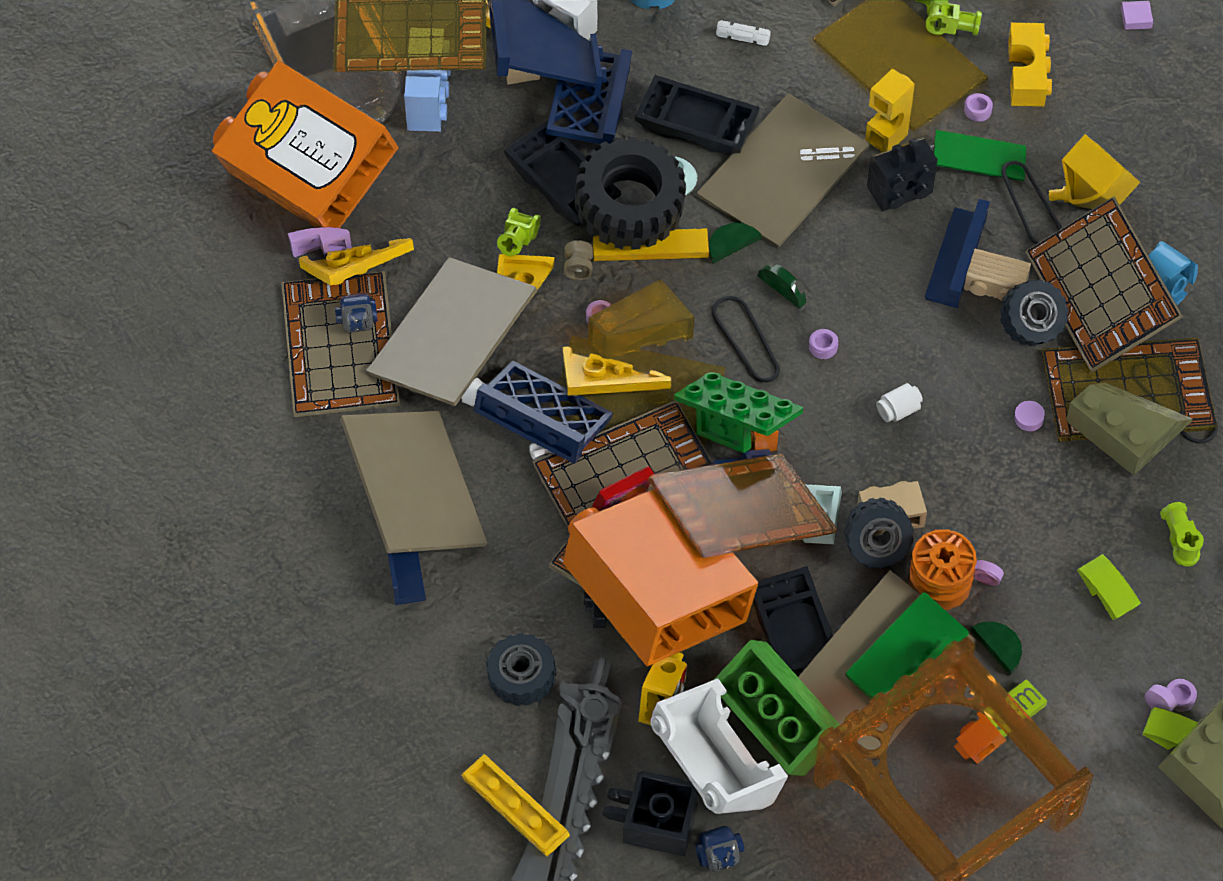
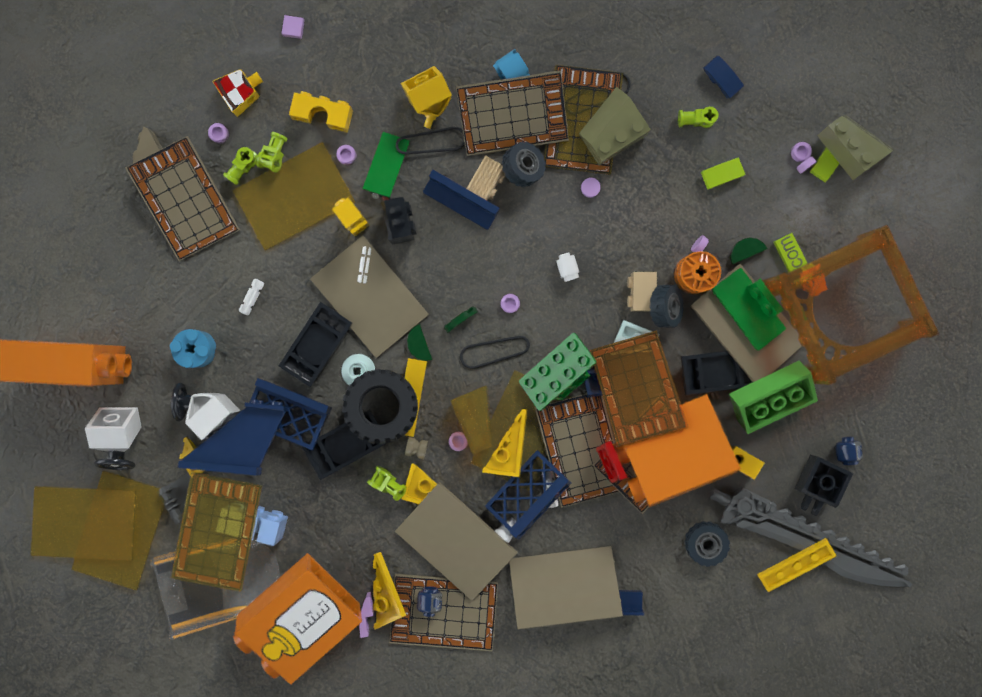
camera: 75 degrees left, 30 degrees up
(712, 754) = (804, 443): white windscreen -> none

